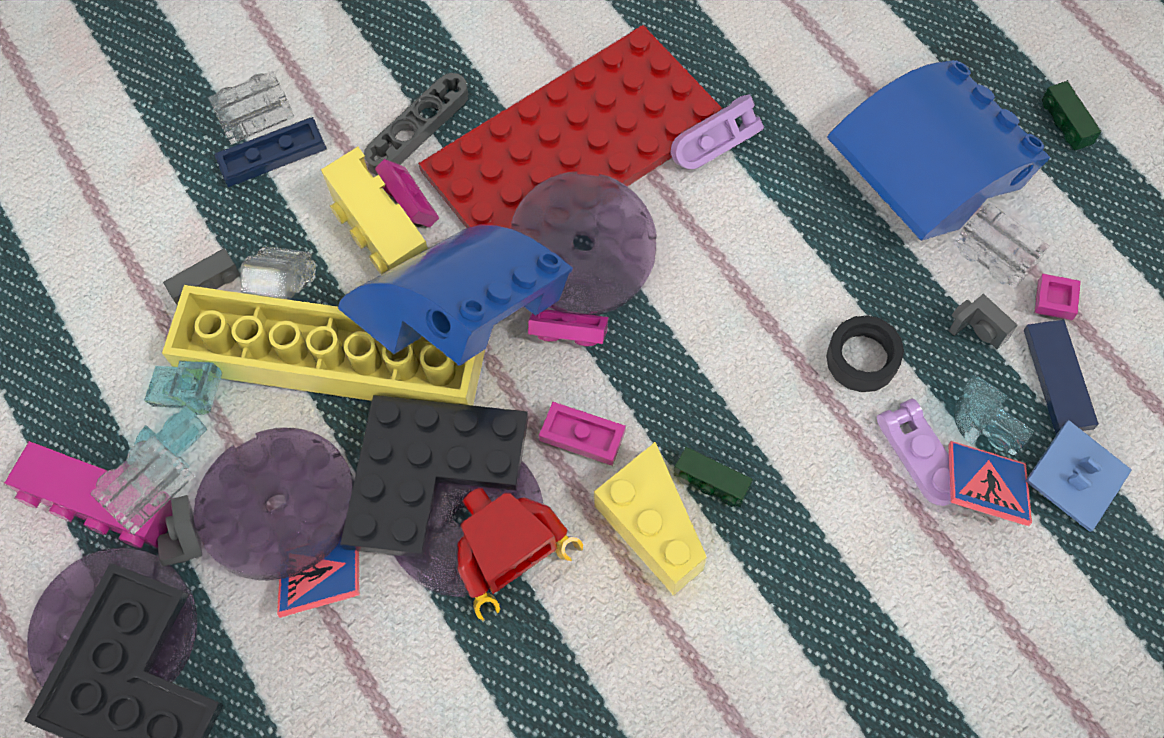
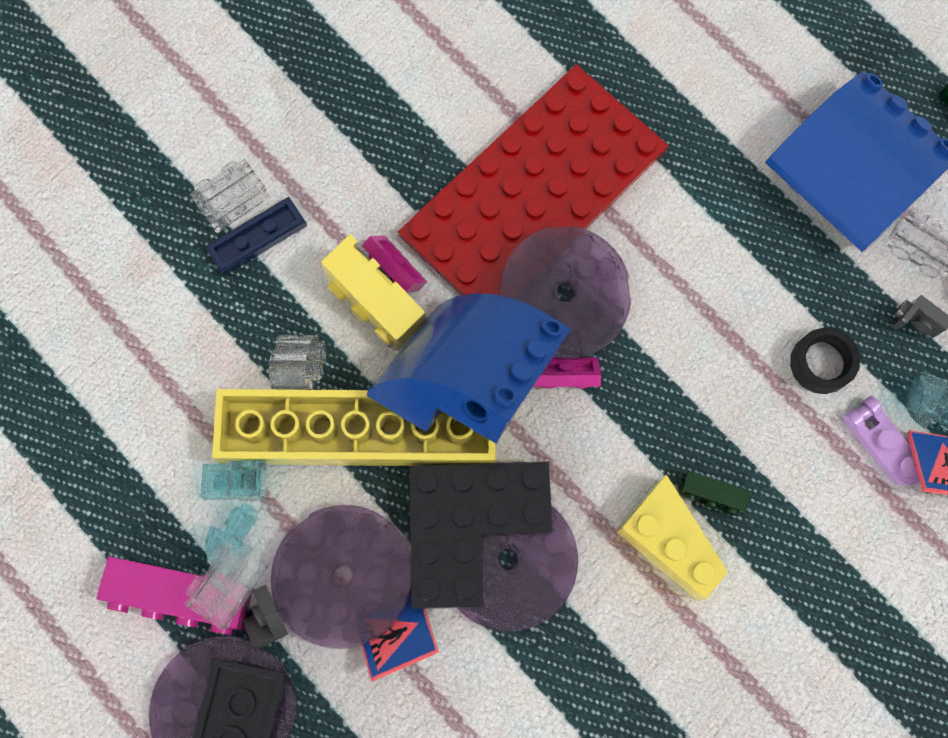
camera: 15 degrees left, 10 degrees up
(208, 273) = (223, 372): dark grey piece -> none
(411, 120) = (384, 189): dark grey beam -> none
(506, 541) = (553, 584): red torso -> none
(582, 433) = (596, 470): dark pink plate -> none
(716, 134) = (663, 167): lavender plate -> none

